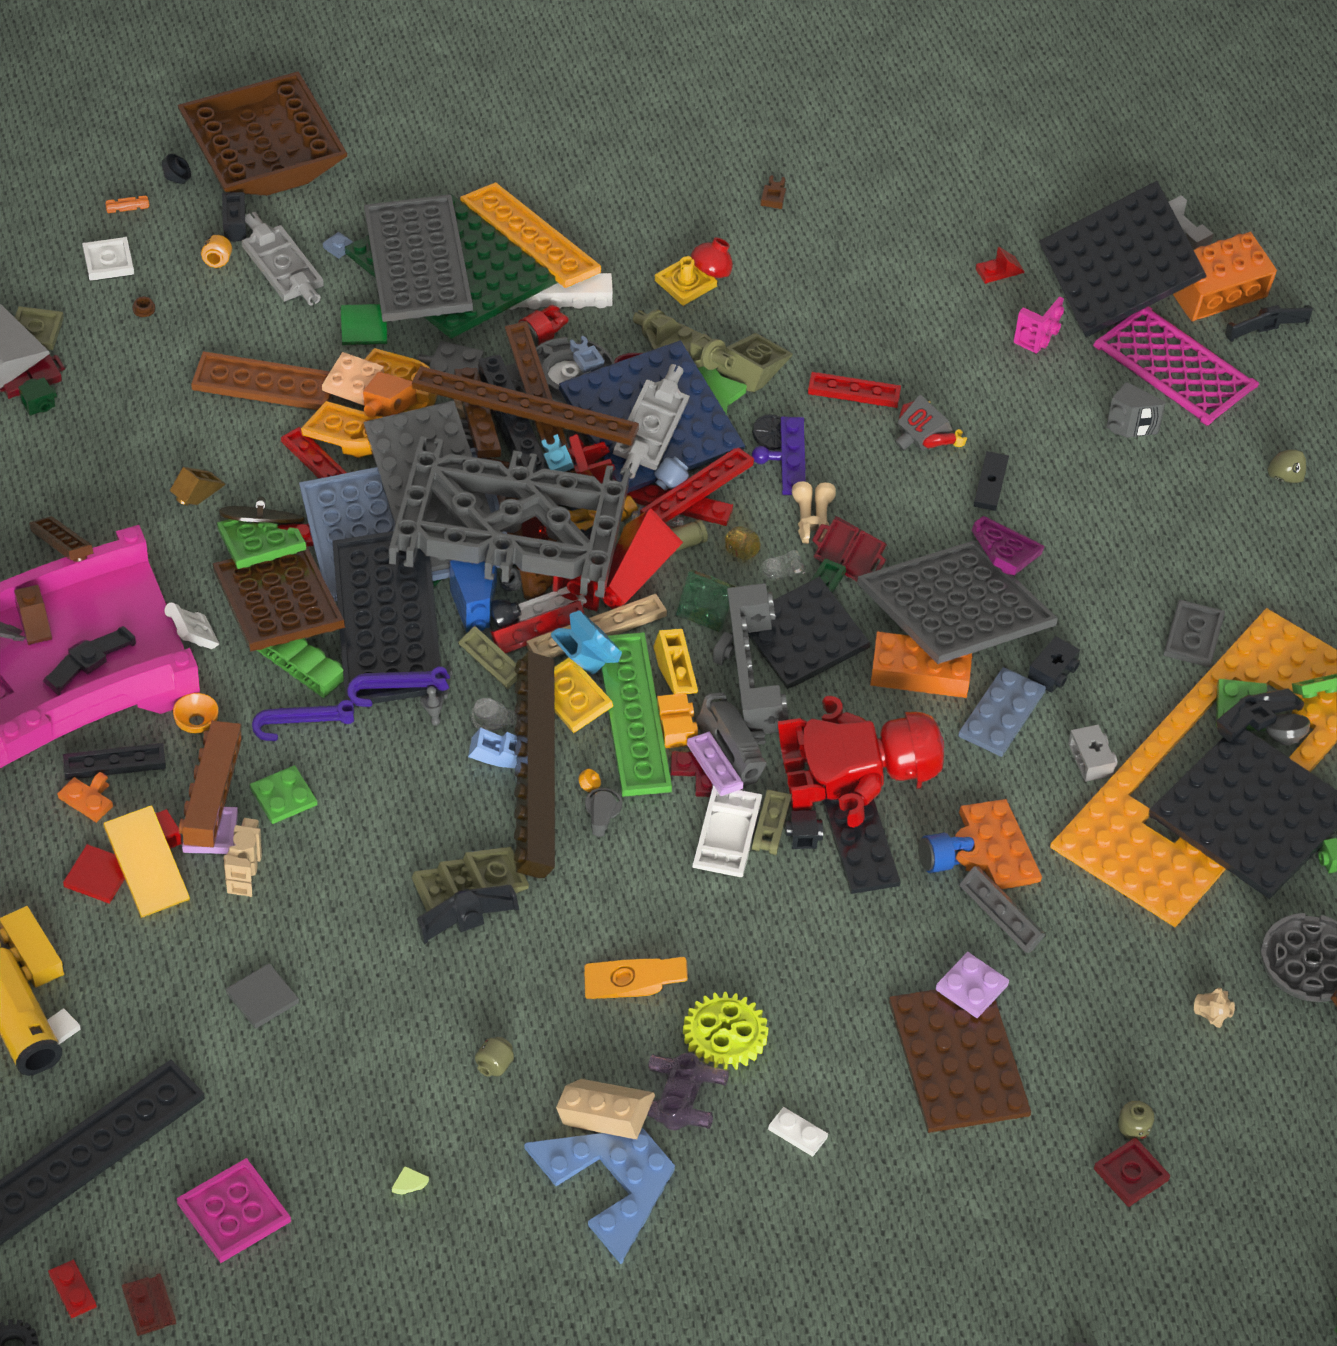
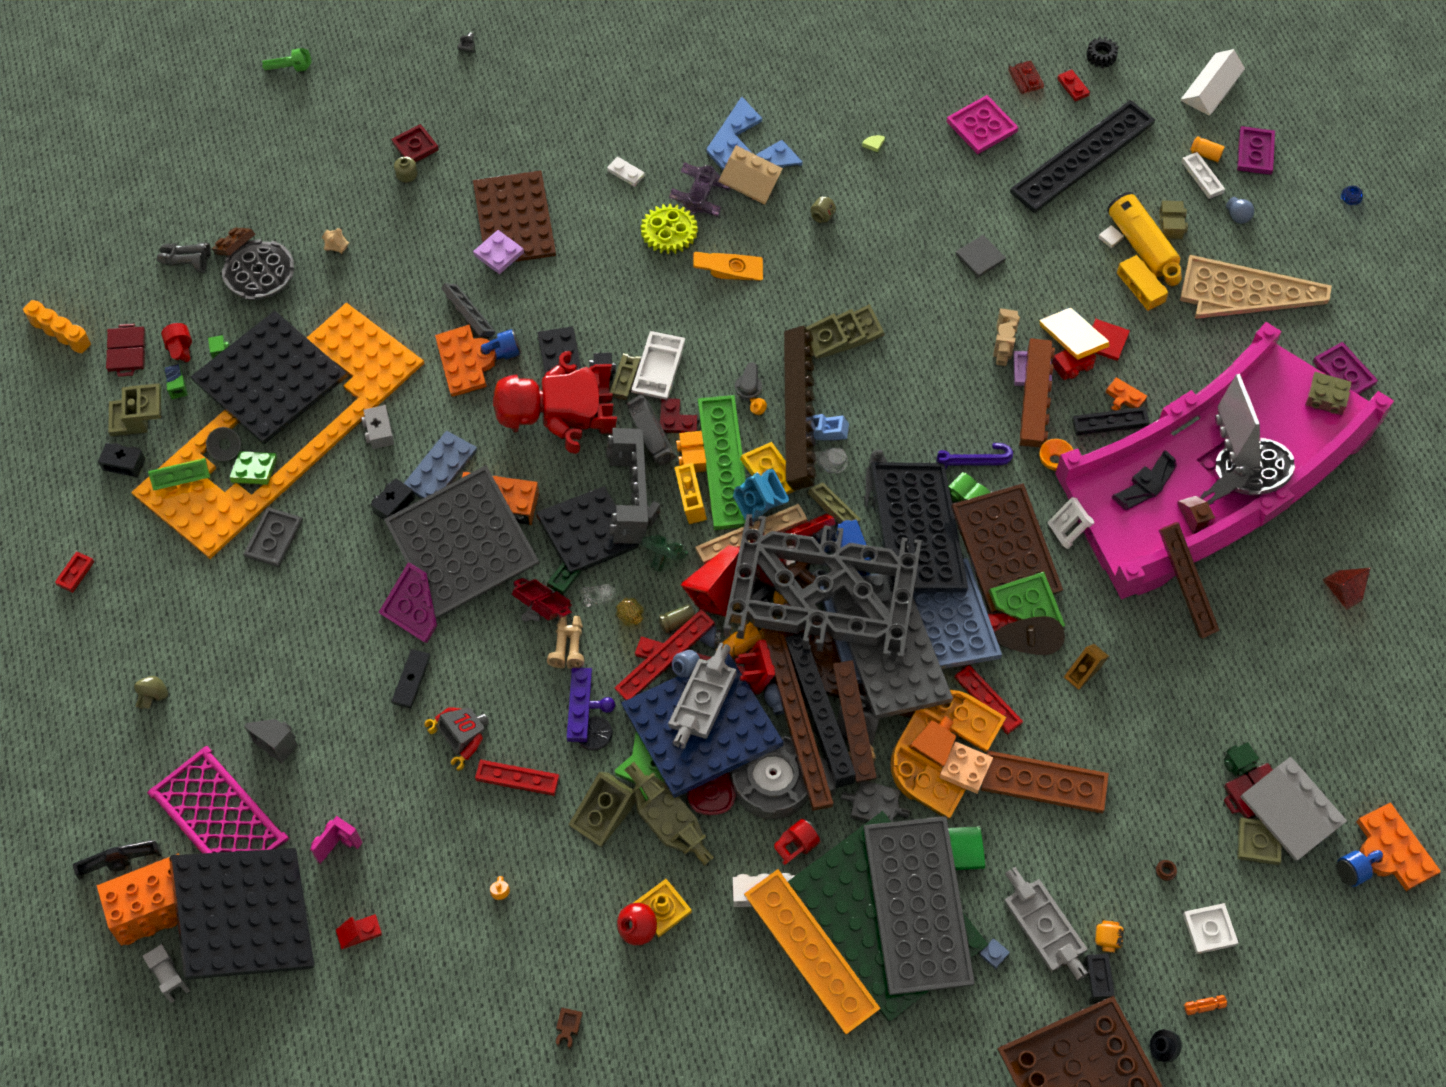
camera: 175 degrees left, 10 degrees up
(283, 794) = (983, 399): bright green plate -> none
(435, 678) = (876, 459): dark purple piece -> none
(466, 910) = (843, 303): black plate -> none
(525, 405) = (814, 705): reddish brown plate -> none
(557, 456) = (784, 658): medium azure plate -> none
(586, 357) = (758, 776): sand blue plate -> none
(715, 763) = (664, 412): lavender tile -> none
(858, 295) = (499, 889): none -> light orange piece
(1257, 711) = (245, 446): black plate -> none

